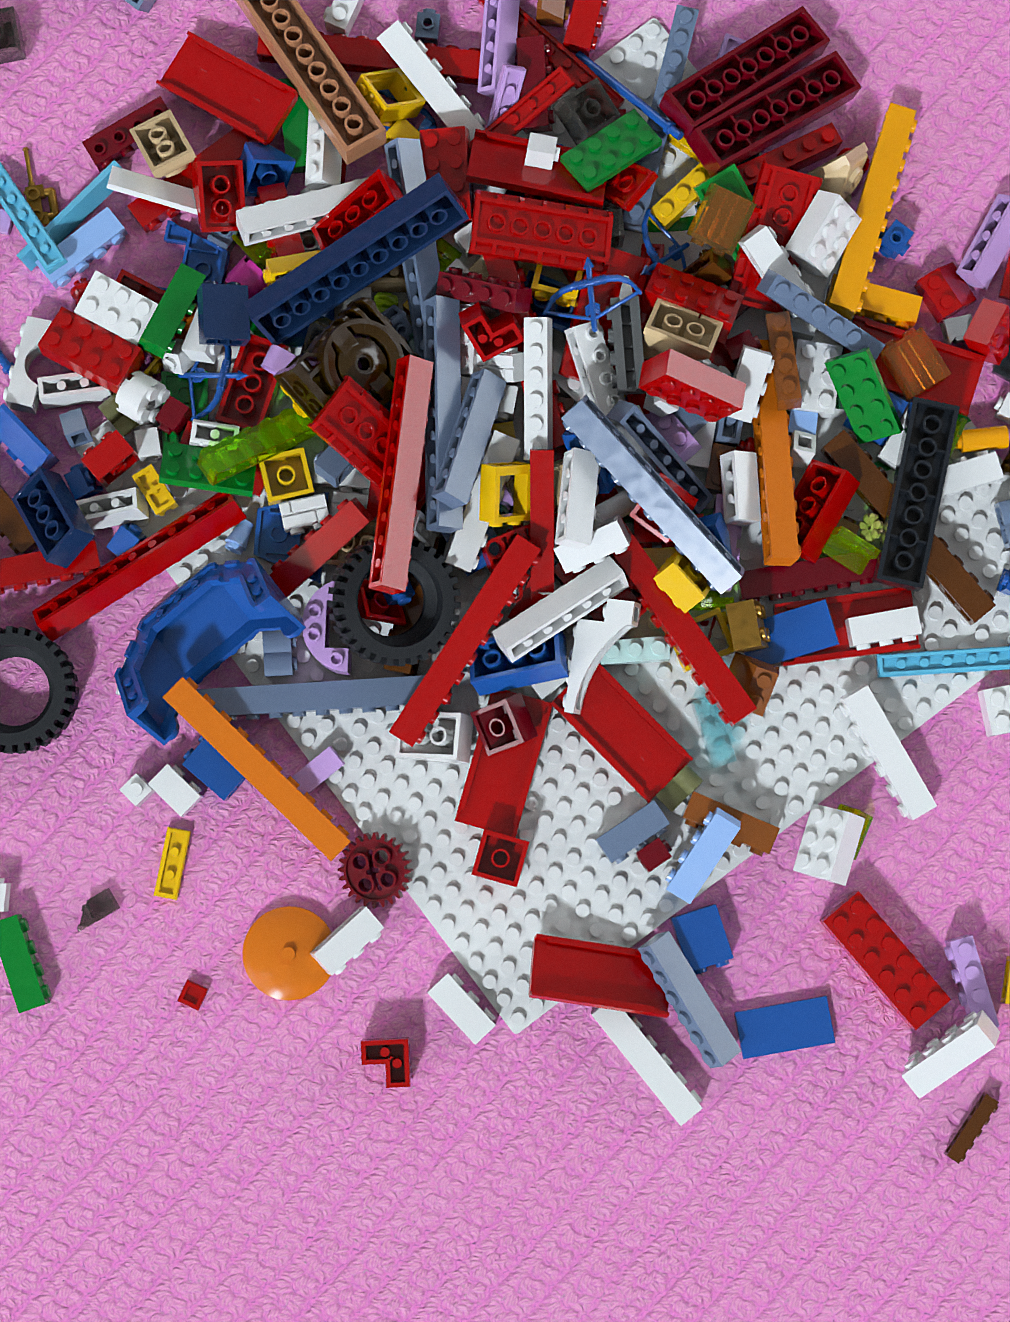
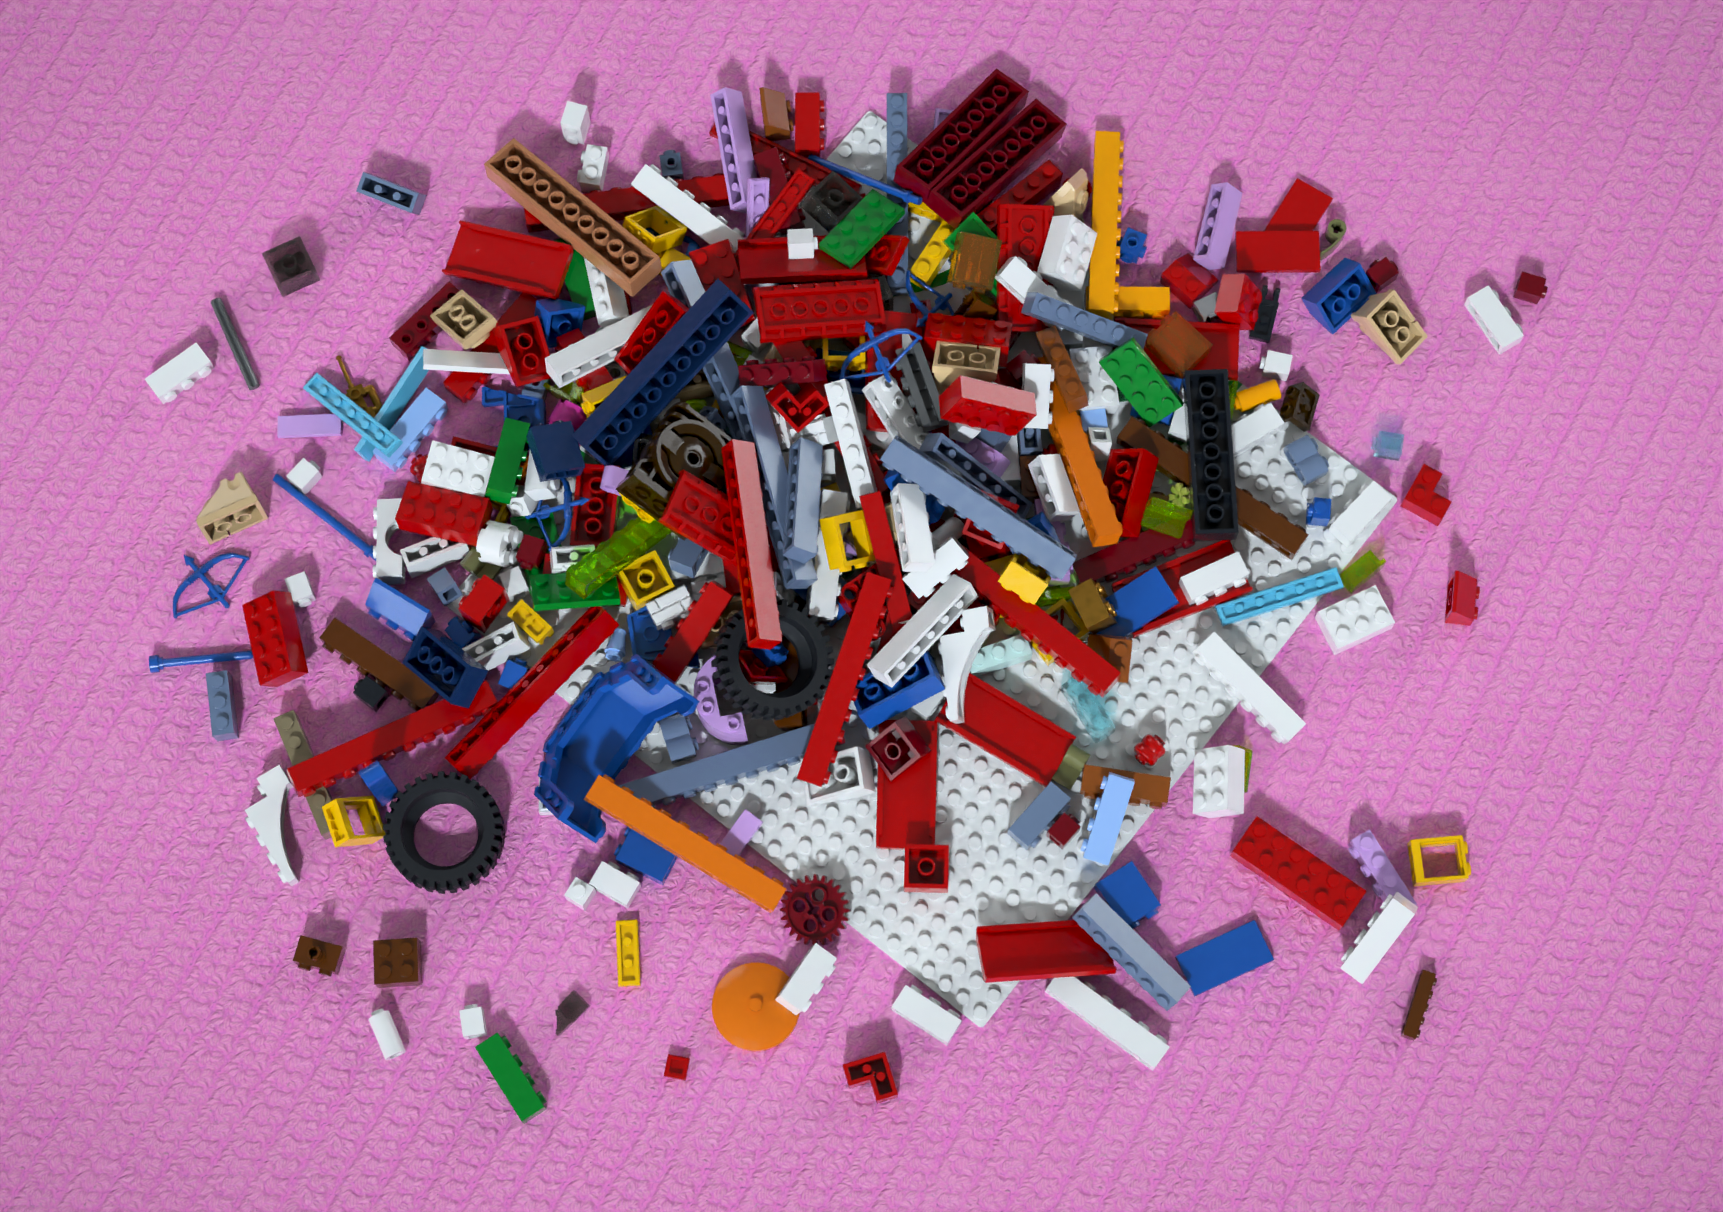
camera: 10 degrees left, 10 degrees down
(766, 791) = (1149, 750): none -> red piece

